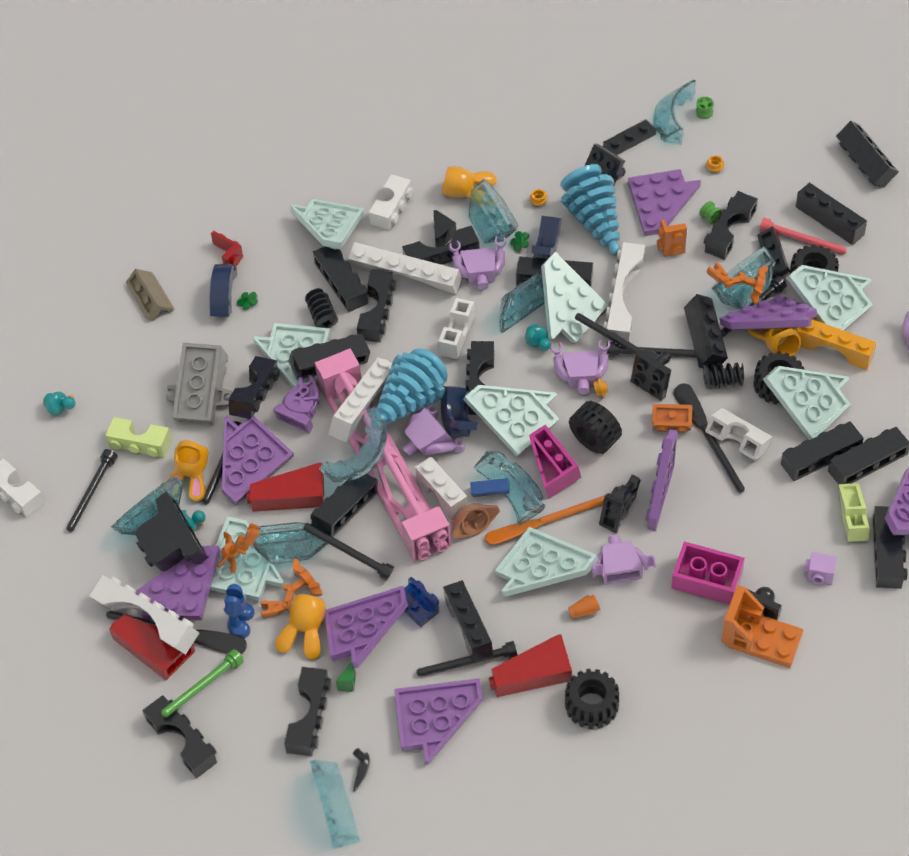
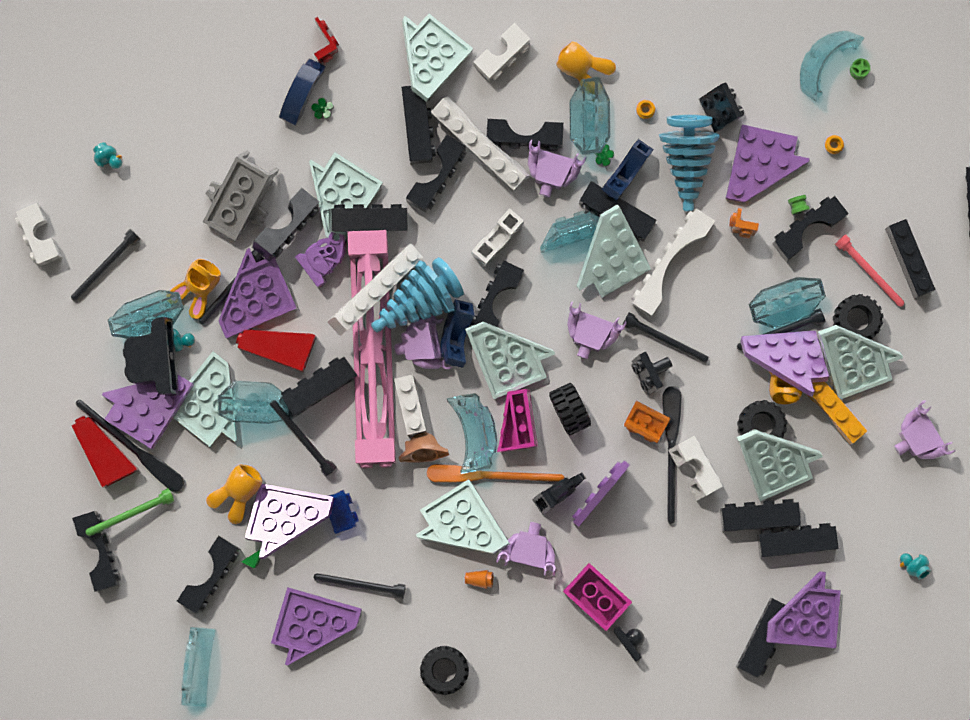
camera: 20 degrees right, 30 degrees up
(148, 293) = (233, 61): dark tan panel -> none
(153, 442) = (178, 239): yellowish green arch -> none
(171, 630) = (121, 459): white arch -> none
(232, 550) = (202, 394): orange piece -> none
(238, 611) = (184, 456): blue piece -> none
(277, 607) = (256, 445): orange piece -> none
(321, 308) = (383, 156): black piece -> none
(362, 769) = (234, 644): black bar -> none
(366, 457) = (349, 354): clear light blue windscreen -> none
(443, 228) = (536, 110): black slope -> none
(473, 630) = (373, 553): black arch -> none
(490, 487) = (453, 423): blue piece -> none
(533, 669) = (410, 619): red slope -> none
(537, 337) = (568, 277): teal animal -> none
(600, 387) = (599, 360): light orange plate -> none
(612, 336) = (657, 347): black piece -> none
(630, 137) = (769, 72): black plate -> none
(705, 331) = (721, 345): black brick -> none
(720, 274) = (793, 320): orange piece -> none
(723, 375) = (714, 398): black piece -> none
(757, 635) = (614, 671): orange bracket -> none
(770, 239) = (833, 278): black plate -> none
(820, 568) = (695, 632): lavender brick -> none
(853, 512) = (754, 589): yellowish green slope -> none

